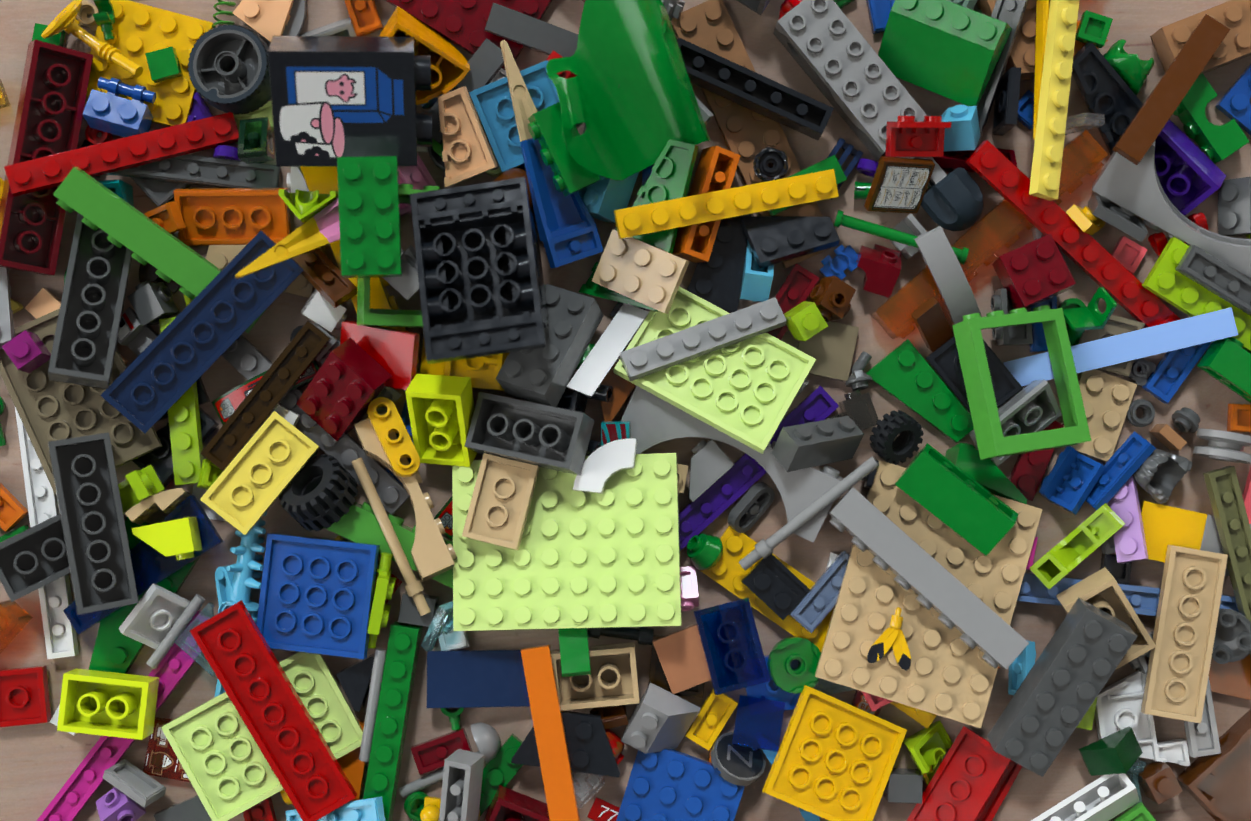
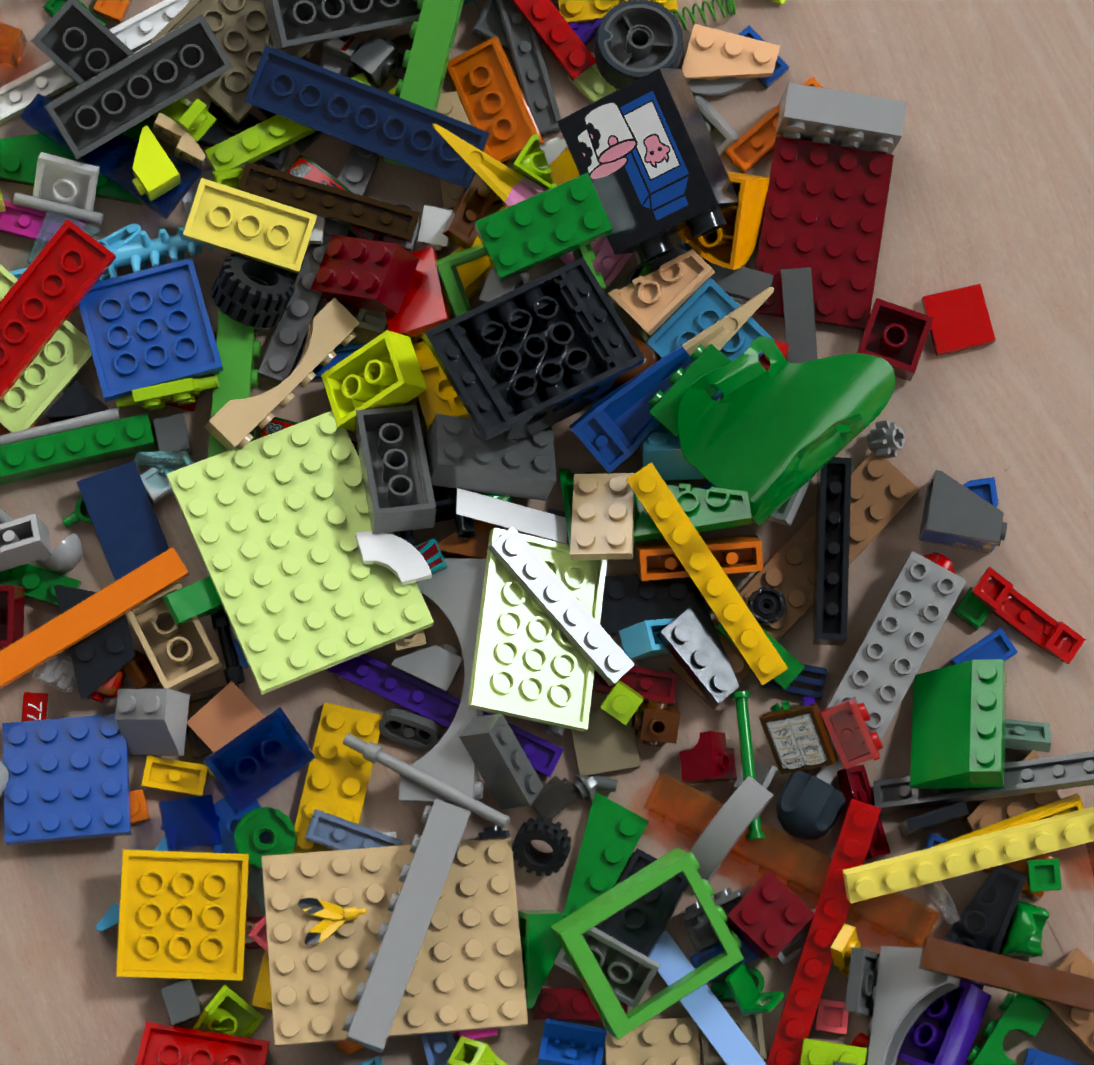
camera: 65 degrees right, 10 degrees down
(168, 217) = (466, 41): orange plate -> none
(226, 152) = (555, 73): dark purple tile -> none
(256, 141) = (576, 92): clear green slope -> none
(398, 448) = (326, 345): yellow plate -> none
(413, 586) = (195, 419): tan bar -> none
(432, 753) = (27, 503): dark red plate -> none
(501, 501) = (315, 468): tan plate -> none
(689, 588) = (299, 695): bracket -> none
(704, 551) = (346, 698): green cone -> none
(737, 763) = (141, 816): tile -> none
(775, 586) = (339, 784): black plate -> none
(844, 259) = (697, 720): blue piece -> none
(932, 324) = (673, 833): reddish brown tile -> none
(957, 499) = (501, 925): green brick -> none
(964, 128) = (882, 780): medium azure slope -> none

